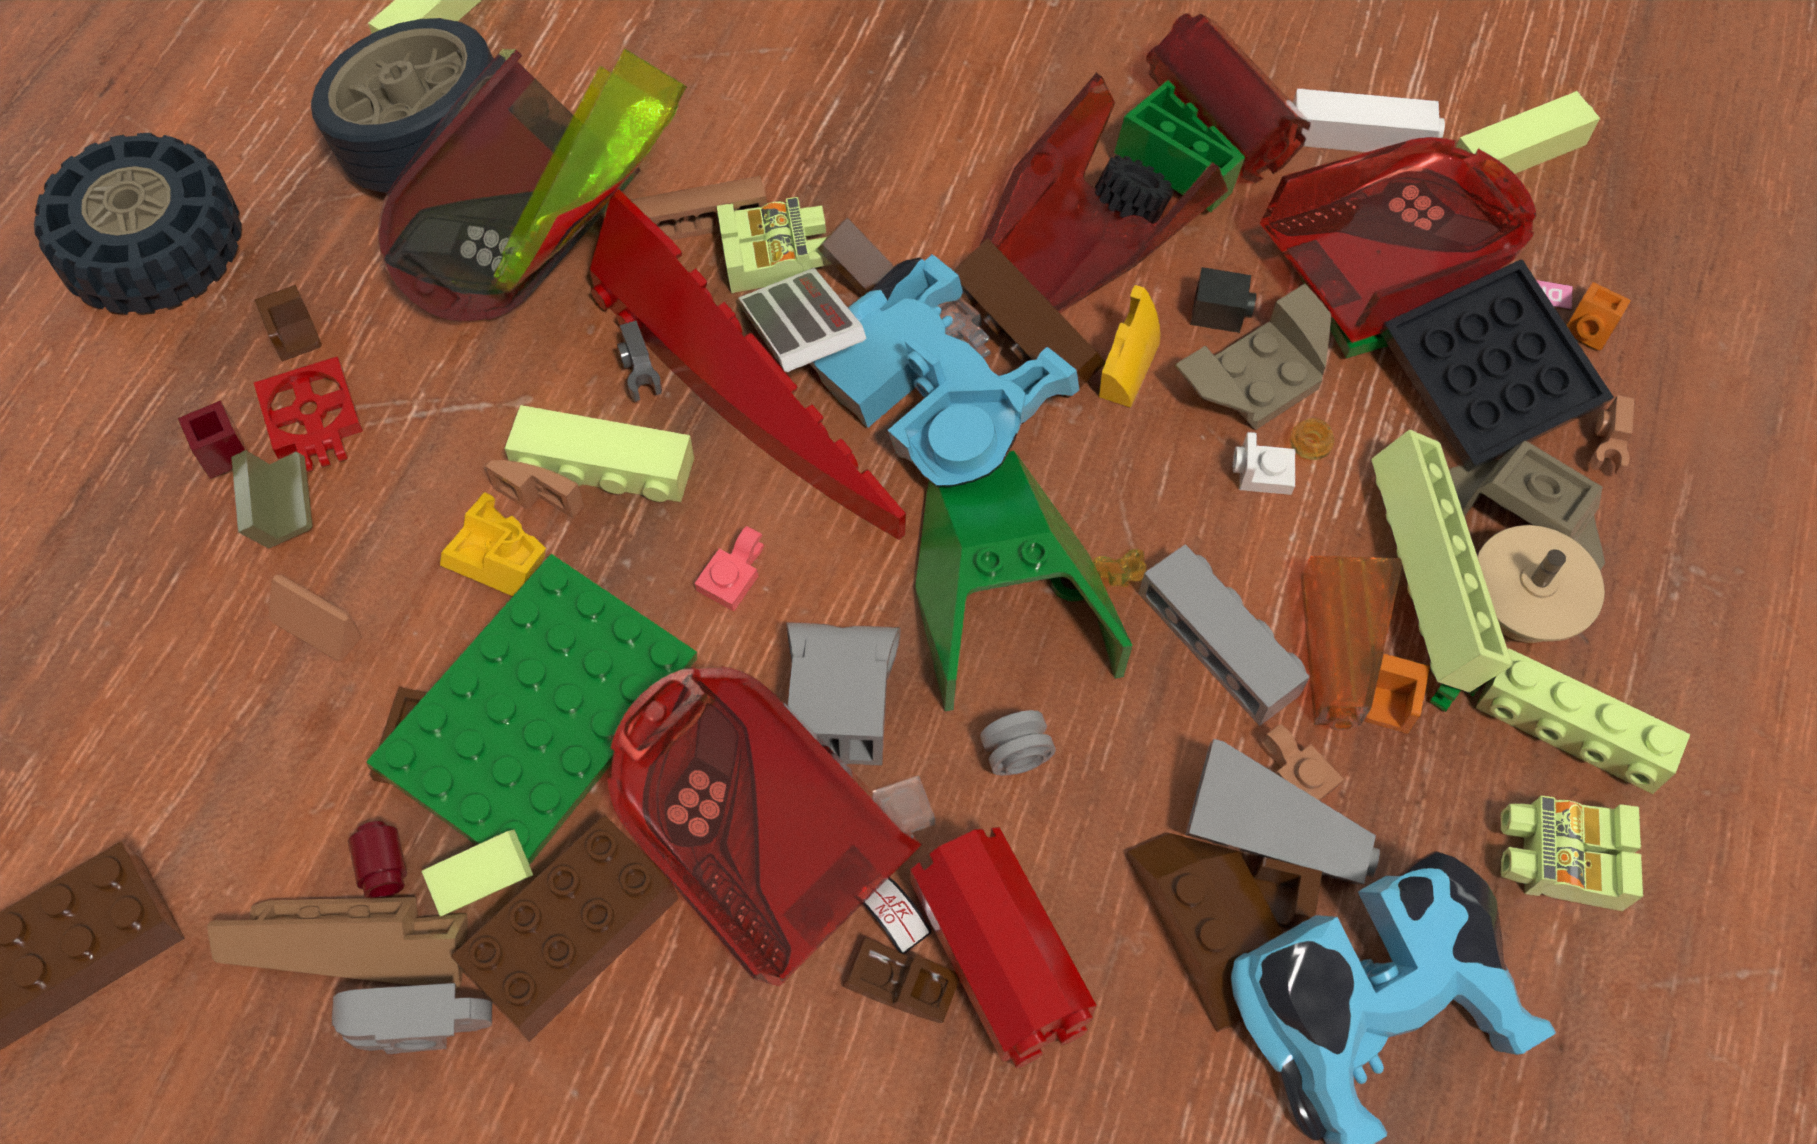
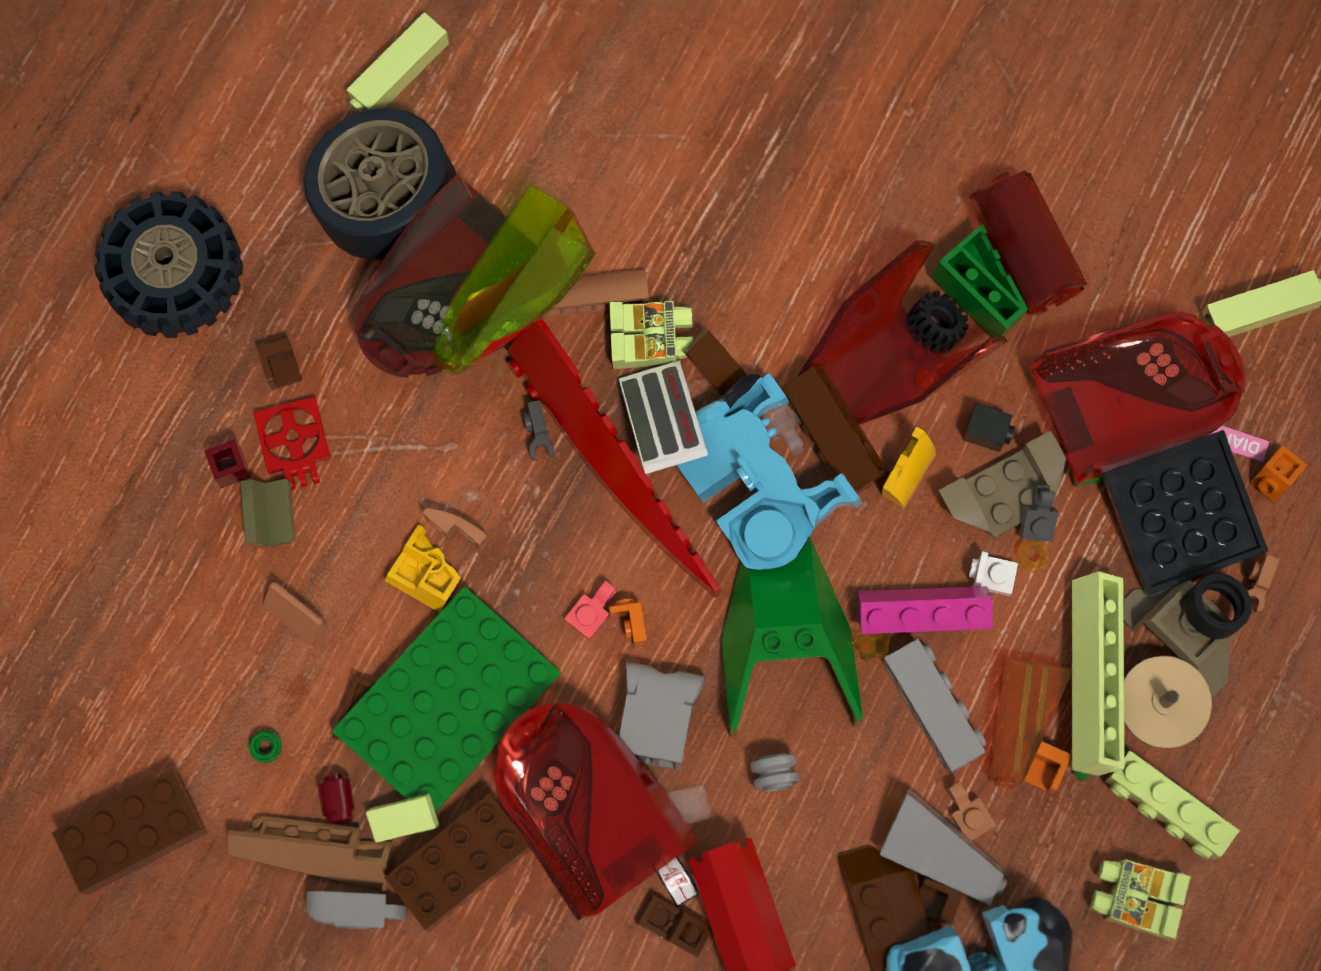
camera: 10 degrees right, 15 degrees up
(262, 793) = (258, 739): none -> green plate
(603, 453) = (505, 506): yellowish green brick -> none
(788, 565) = (635, 625): none -> orange bracket
(1186, 511) = (924, 610): none -> dark pink brick
(1311, 393) = (1039, 520): none -> dark grey plate
(1365, 121) = (1139, 273): white brick -> none
(1561, 472) = (1235, 593): none -> black tyre

